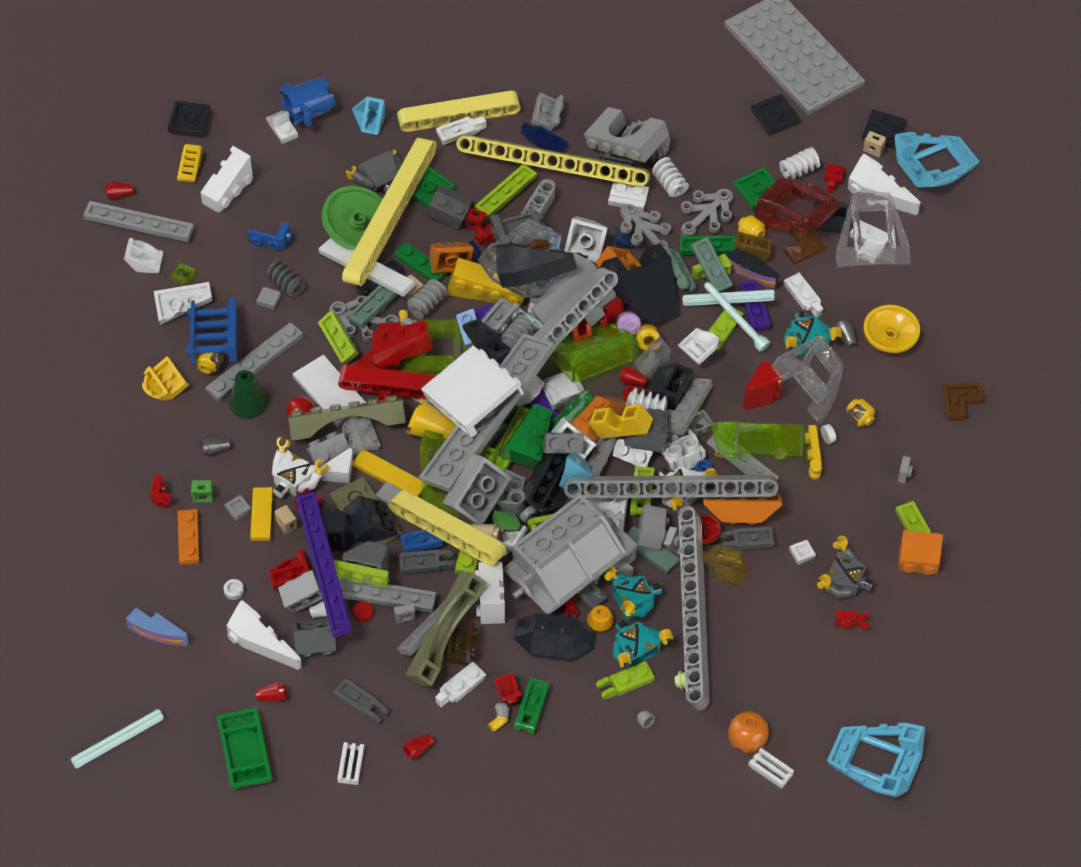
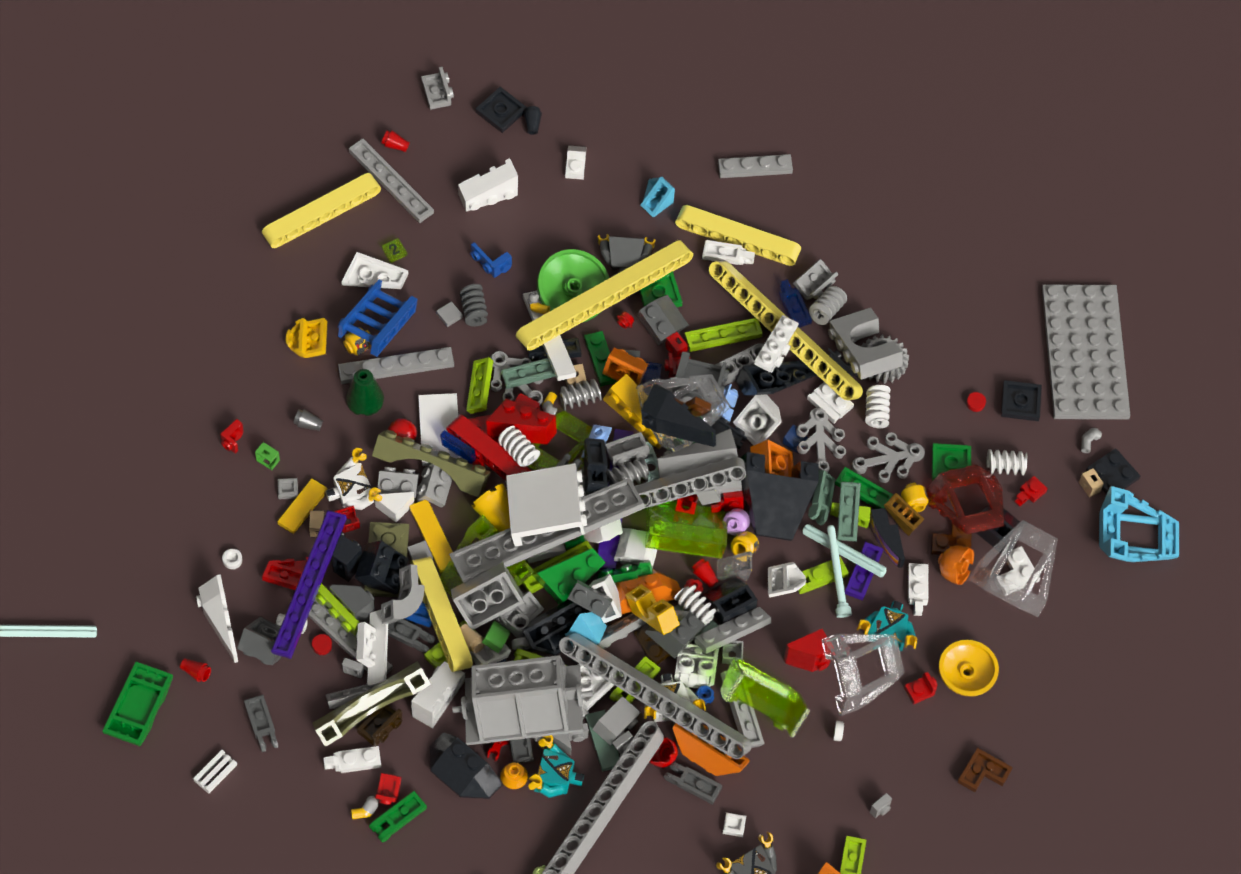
camera: 30 degrees right, 5 degrees up
(96, 276) = (321, 210): none -> light yellow beam
(123, 130) = (437, 89): none -> light grey bracket
(143, 256) = (371, 214): white slope -> none
(156, 628) = (143, 554): medium blue slope -> none
(188, 537) = (229, 489): orange plate -> none
(194, 153) = (479, 142): yellow slope -> none
(221, 112) = (532, 119): none -> black cone
(300, 592) = (276, 595): light grey brick -> none
(306, 100) = (610, 150): blue container -> none
(339, 250) = (535, 305): none -> yellow arm
(359, 392) = (458, 447): none -> clear blue tile
(411, 527) = (409, 598): none -> light grey arch
(412, 584) = (372, 648): none -> white bracket
(414, 363) = (518, 446): none -> white piece
(415, 747) = (278, 791): red cone -> none
(418, 223) = (625, 320): none -> red plate
(430, 53) = (755, 166): none -> light grey plate
(560, 170) = (776, 345): none -> white bracket
(570, 201) = (758, 381): none -> black wedge
(573, 123) = (827, 305): none -> light grey piece
(626, 680) = (494, 844): lime hinge -> none
(637, 643) = (525, 817): teal torso -> none
(726, 564) = (652, 789): clear yellow torso -> none
(740, 134) = (976, 401): none -> red tile
(813, 452) = (810, 741): yellow hinge -> none
(820, 259) = (955, 563): none -> orange cylinder
(845, 113) = (1090, 435): none -> light grey arm
(848, 334) = (927, 646): flat silver cone -> none
(860, 412) = (881, 729): yellow head -> none
(865, 366) = (921, 688): none -> red bracket
(869, 178) = (1056, 520): white wedge -> none

